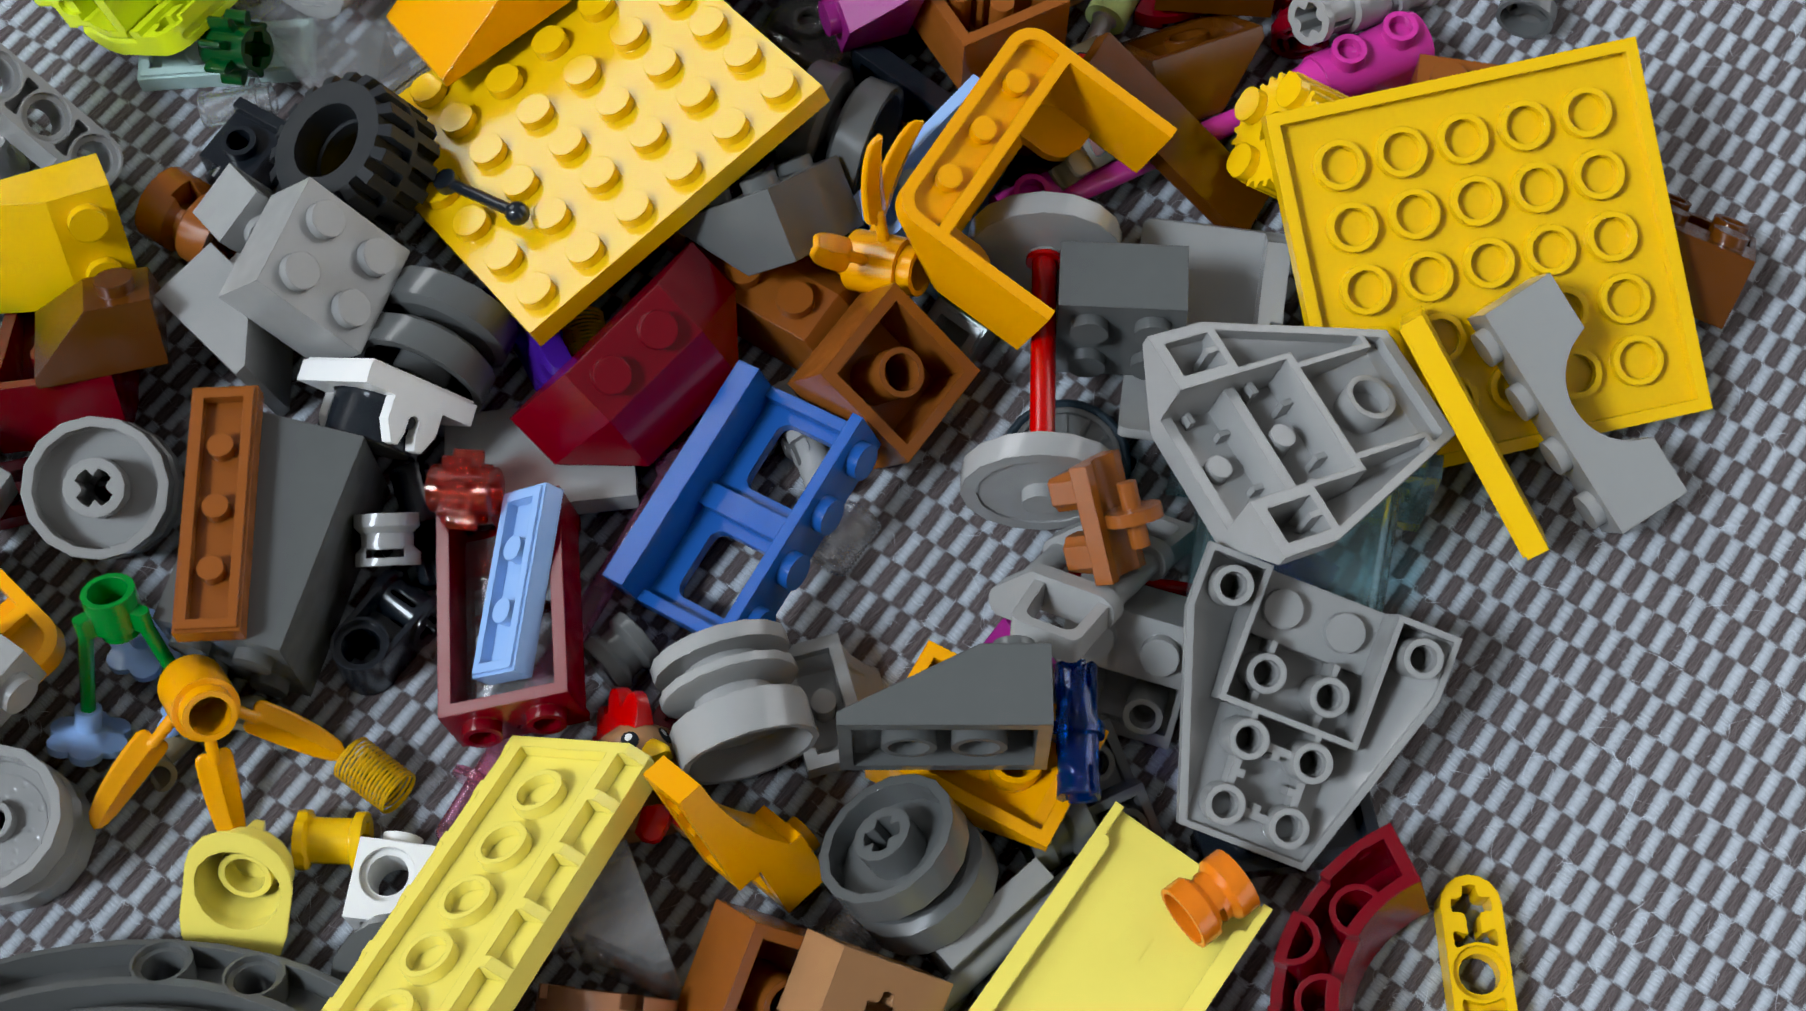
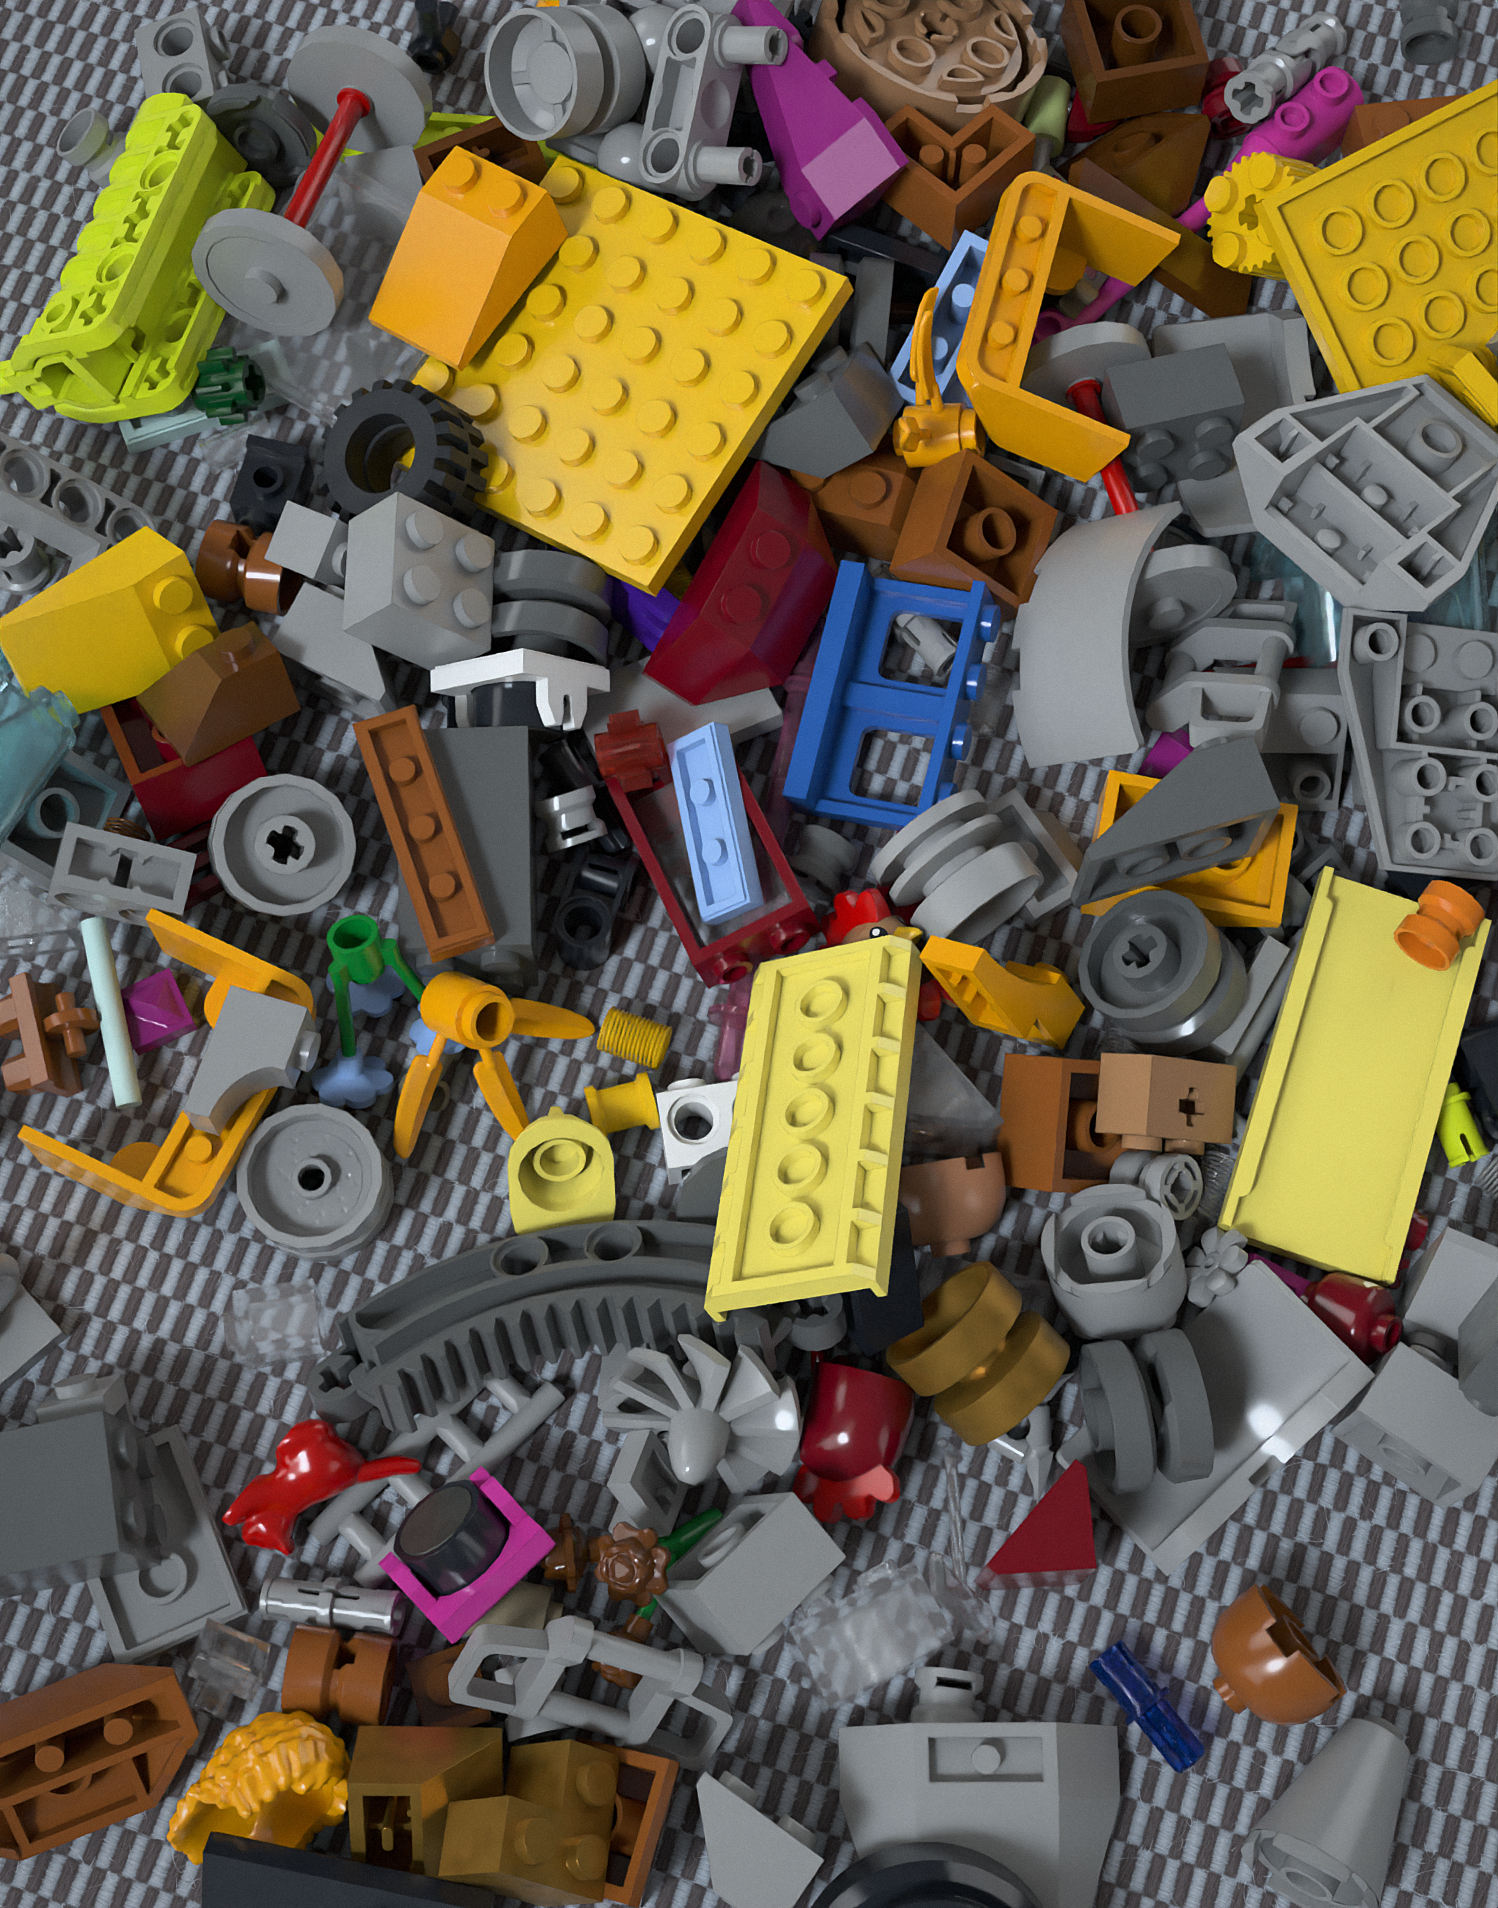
camera: 20 degrees left, 5 degrees up
(448, 182) = (502, 465): black hinge -> none
(930, 499) = (1075, 640): none -> light grey panel
(1077, 732) = (1286, 836): clear blue pin -> none
(1109, 515) = (1250, 608): dark orange hips -> none

